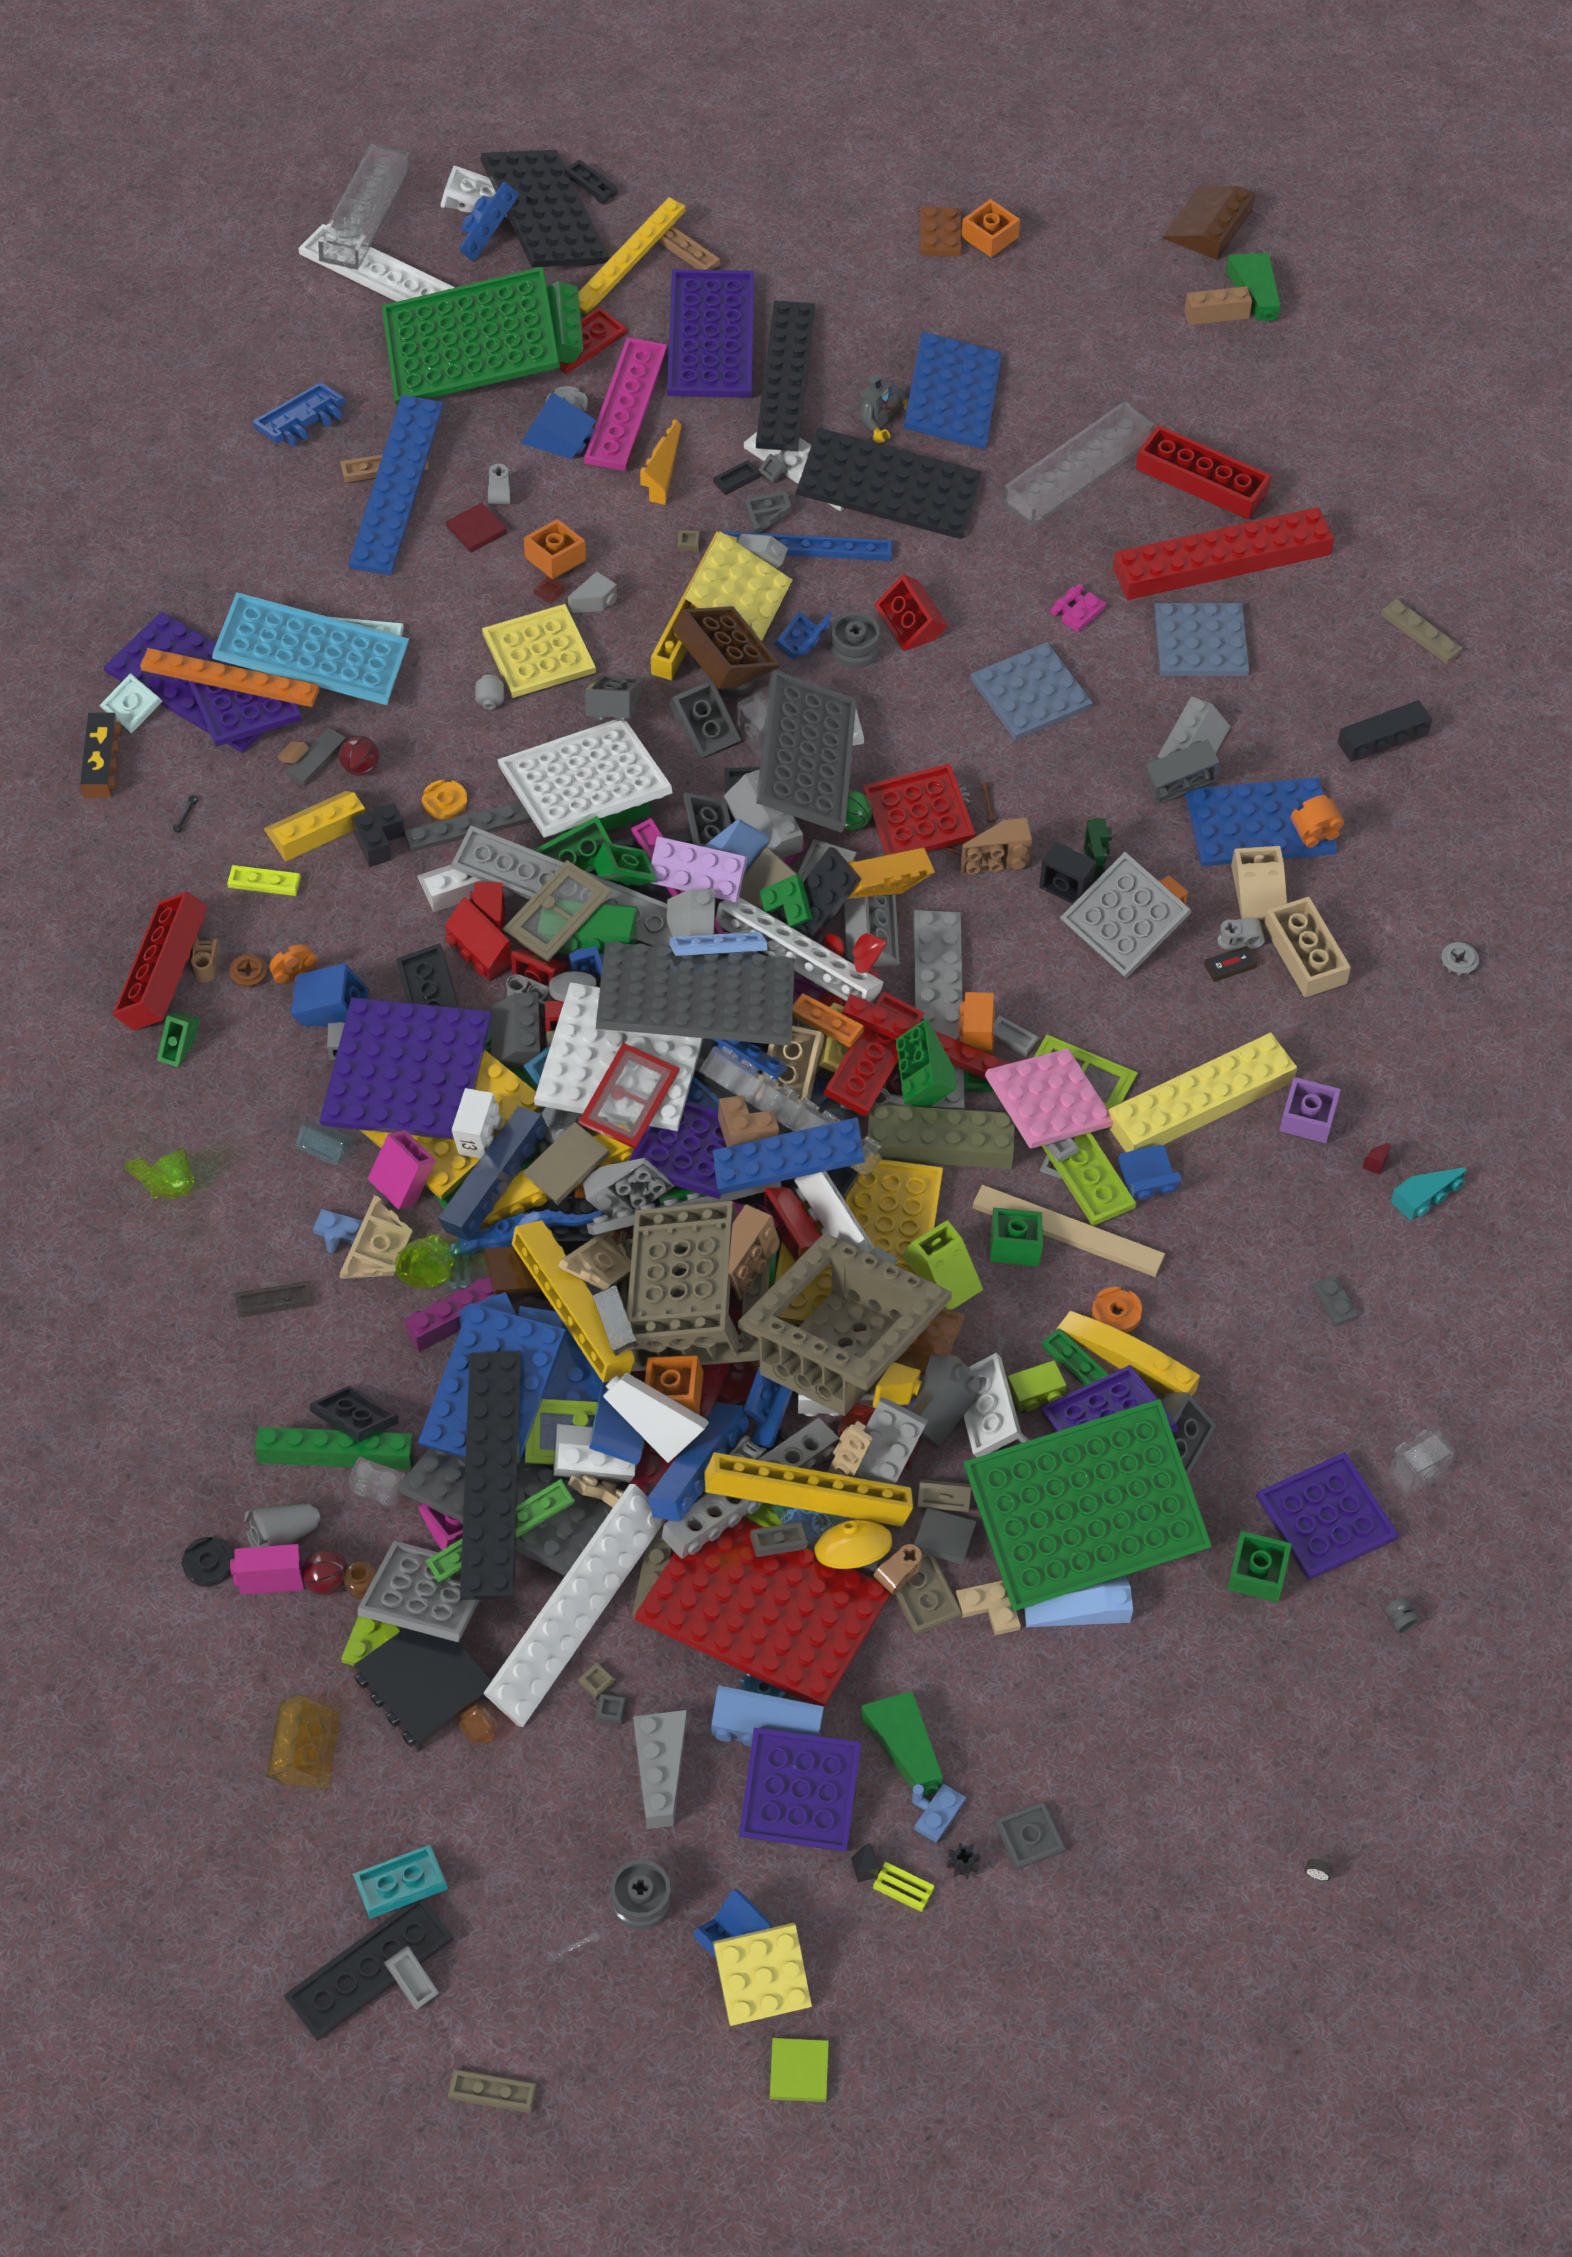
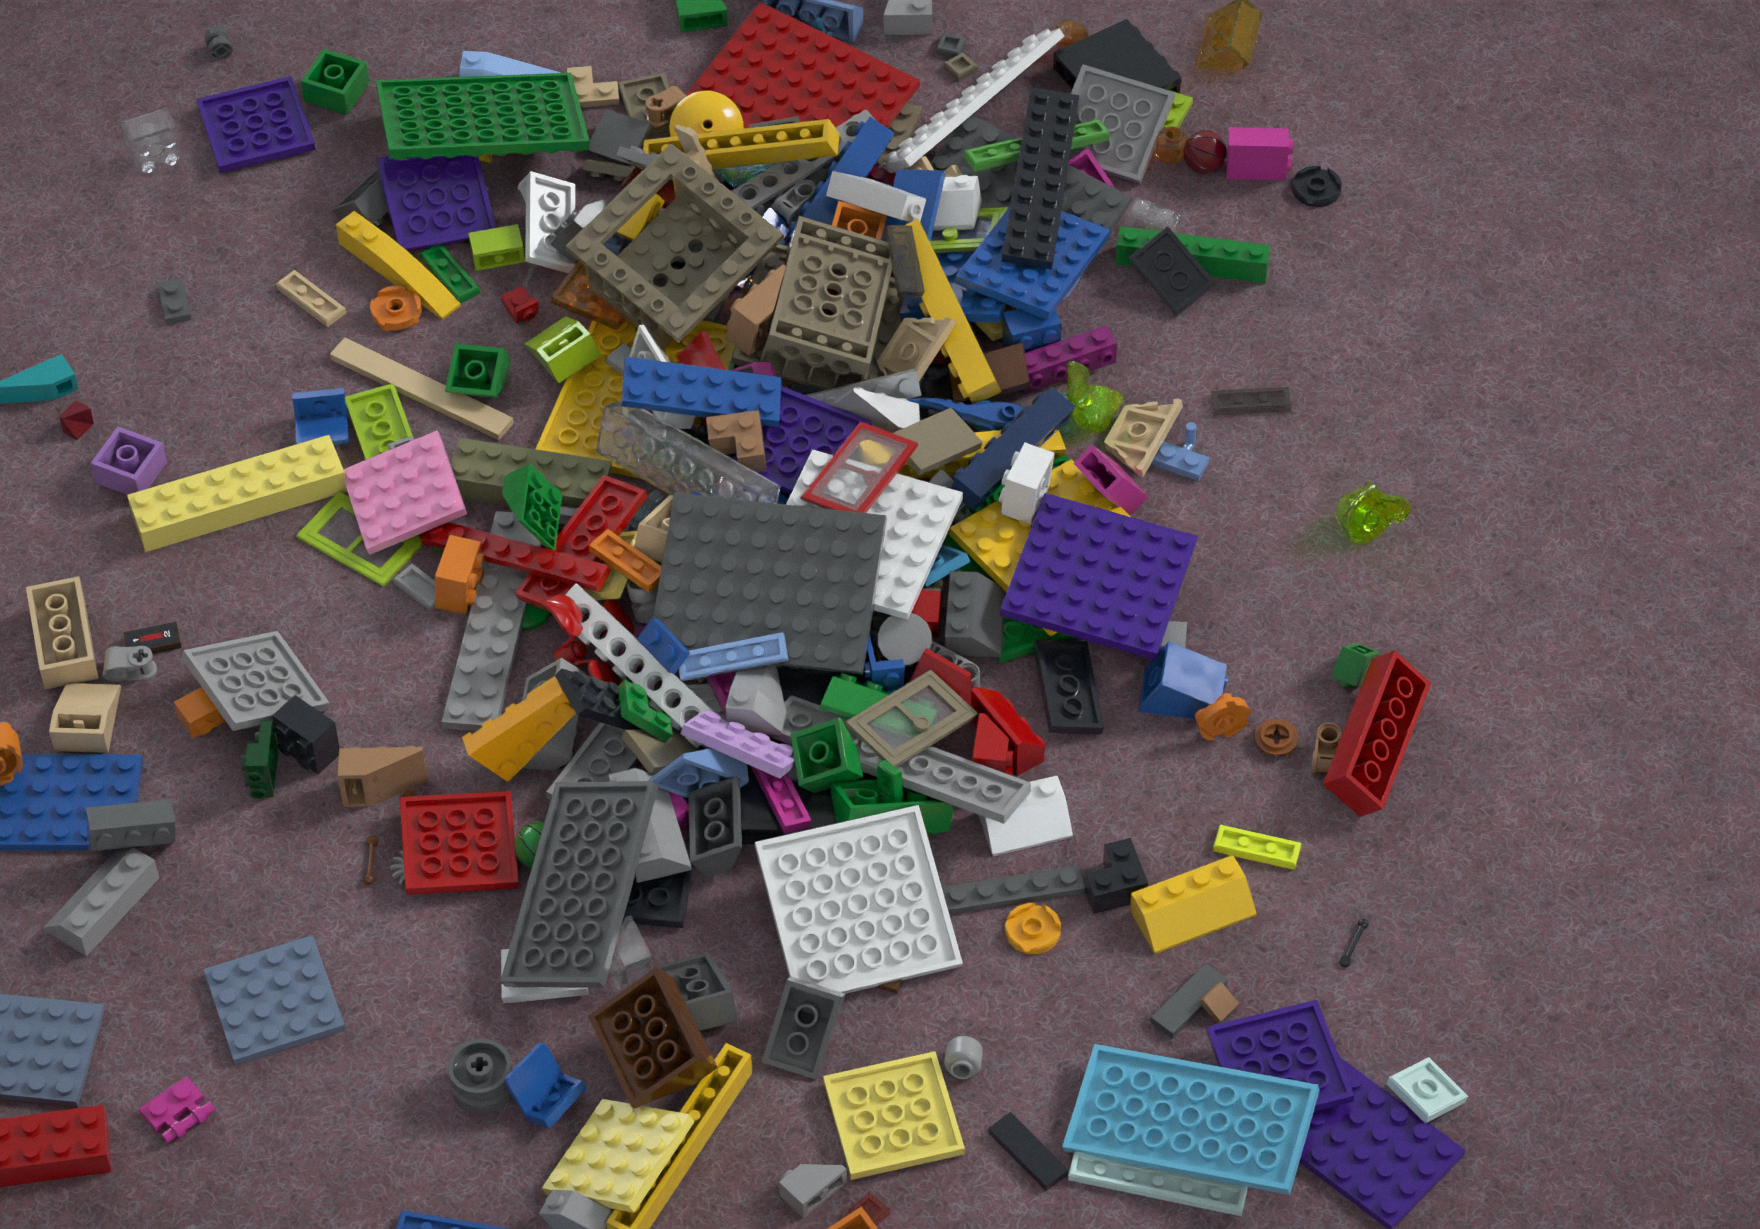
camera: 170 degrees left, 5 degrees down
(99, 755) = (1463, 1020): brick -> none
(230, 677) = (1333, 1092): orange plate -> none
(280, 1524) = (1246, 192): light grey cone -> none
(323, 1142) = (1205, 547): clear light blue panel -> none
(359, 755) = (1135, 975): dark red piece -> none
(434, 639) = (1028, 1151): none -> black tile
(568, 853) = (889, 778): none -> green tile
(781, 947) = (663, 645): none -> blue plate
(910, 613) = (397, 1114): red slope -> none
(995, 1325) = (520, 304): none -> red bracket
(1203, 1318) = (311, 298): none -> tan tile

